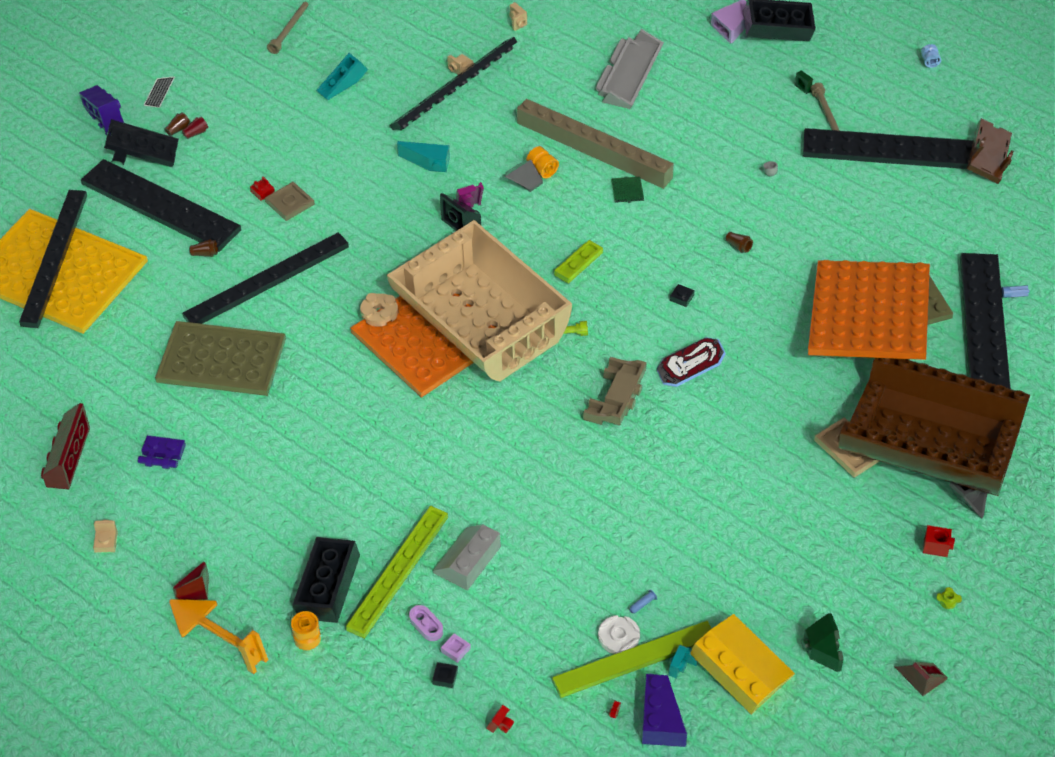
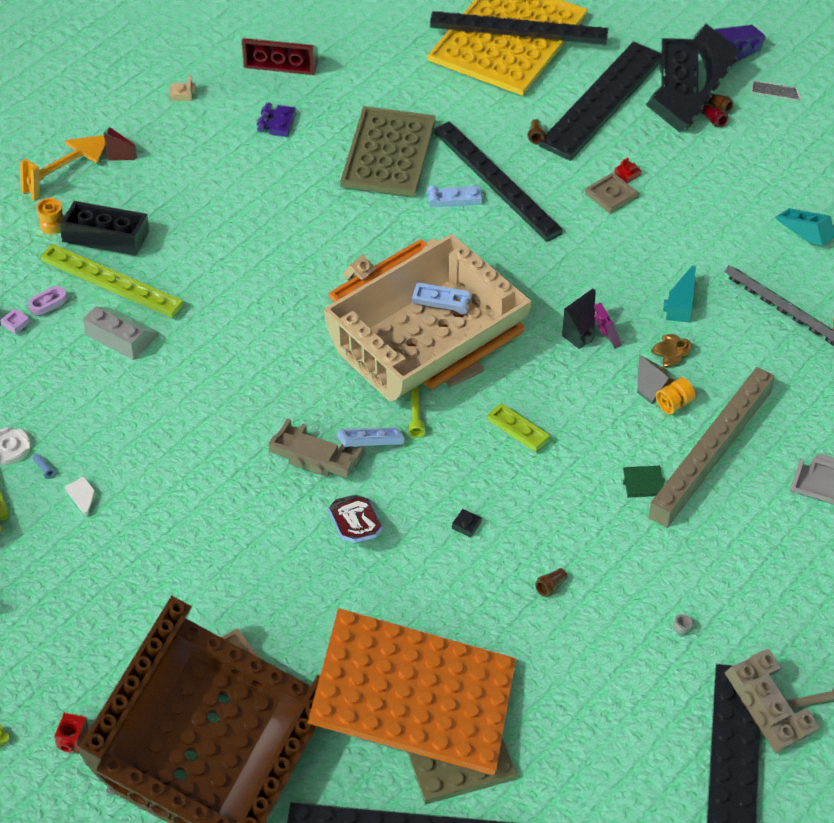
camera: 90 degrees right, 0 degrees up
(130, 109) = (717, 56): none -> black arch
(287, 308) = (454, 196): none -> light blue plate
(389, 371) = (360, 267): none -> tan bracket
(447, 297) = (441, 297): none -> light blue plate
(485, 168) = (672, 349): none -> pearl gold plate
(600, 353) = (370, 436): none -> light blue tile
(676, 566) = (81, 494): none -> white tile
(847, 119) = (766, 703): none -> dark tan bracket

